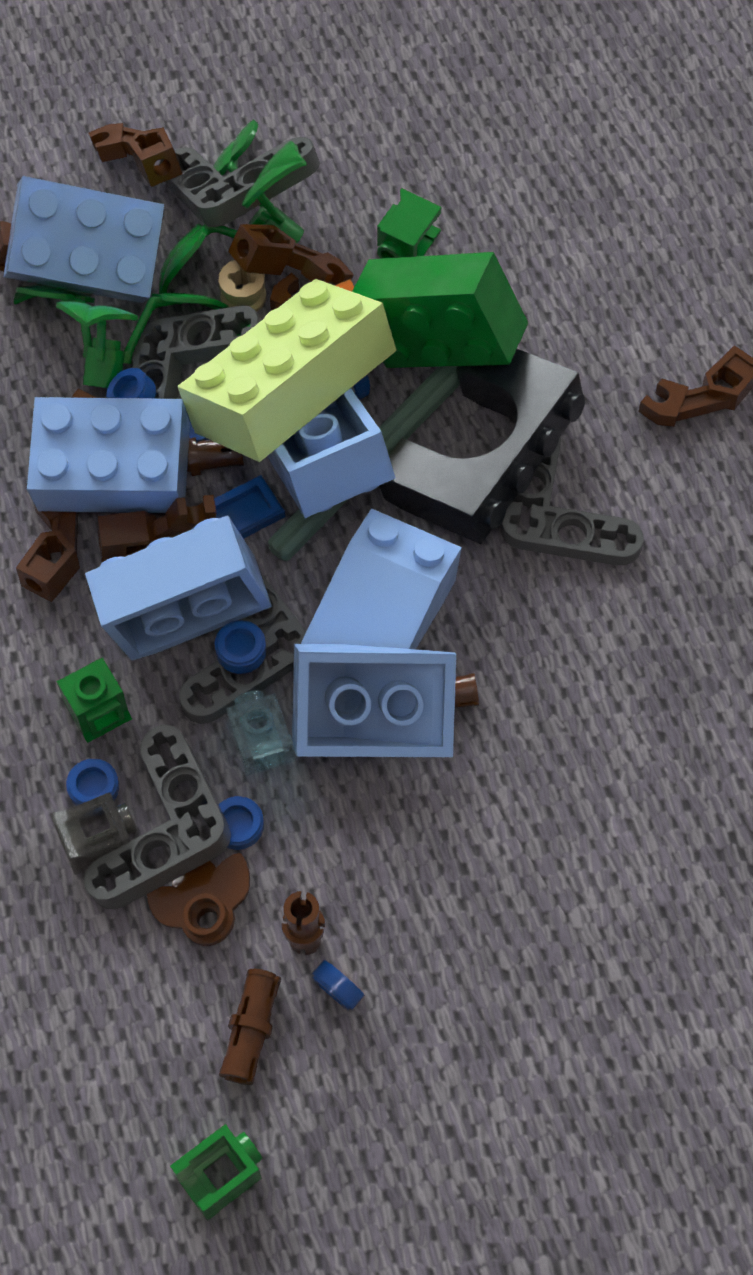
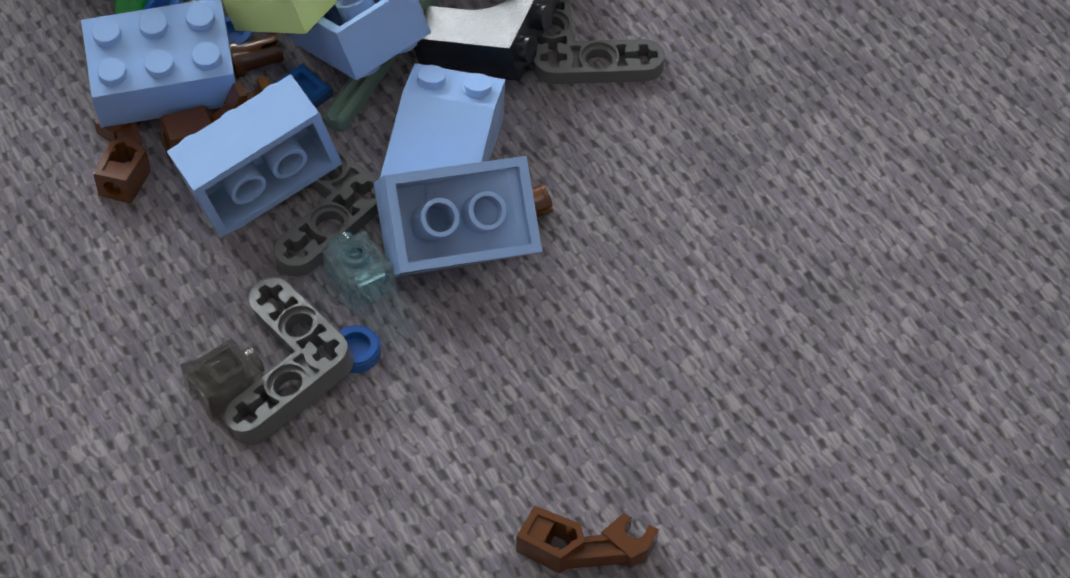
camera: 15 degrees left, 10 degrees down
(90, 780) = (206, 337): blue tile -> none
(94, 700) = (191, 262): green window -> none
(201, 892) = (339, 411): reddish brown plate -> none
(240, 647) = (322, 200): blue tile -> none
(250, 1027) = (413, 511): reddish brown pin -> none
(303, 923) = (443, 406): reddish brown pin -> none
(337, 985) = (486, 459): blue tile -> none
(438, 1116) = (605, 549): none -> reddish brown piece

